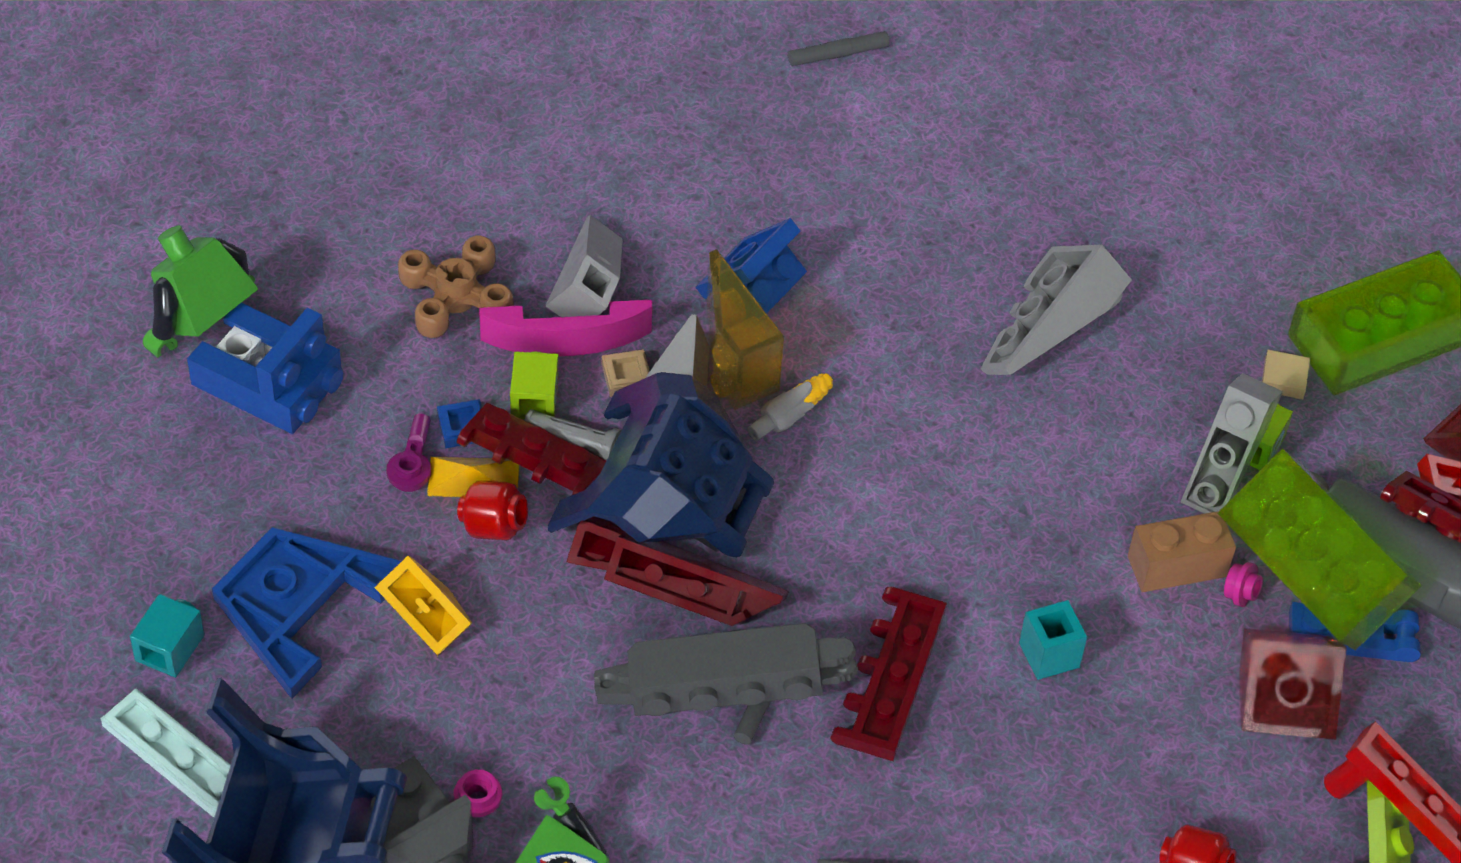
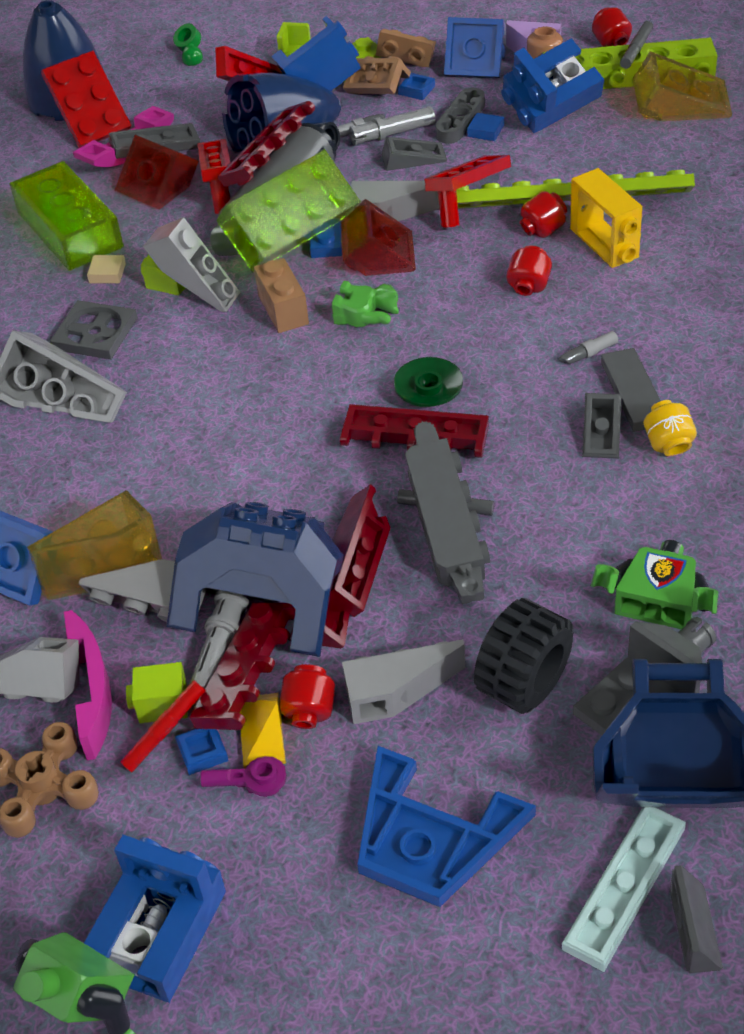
camera: 90 degrees left, 5 degrees down
(118, 804) = (694, 922): none -> dark grey slope
(167, 635) = (498, 924): teal brick -> none
(424, 604) = (422, 723): yellow slope -> none
(466, 695) = (523, 655): none -> black tyre
(484, 782) = (596, 649): dark pink plate -> none
(485, 383) = (163, 726): none -> red piece
(488, 591) = (393, 681): none -> light grey slope
(624, 369) = (131, 638): tan tile -> none
(790, 406) = (167, 525): light grey piece -> none
(980, 681) = (428, 381): none -> dark green dish
(1052, 639) = (375, 343): teal brick -> none
(1156, 647) = (360, 305): none -> bright green animal
(1171, 333) = (112, 337): none -> dark grey piece
(1243, 583) = (302, 269): dark pink plate -> none
(1390, 693) = (398, 198): none -> light grey slope

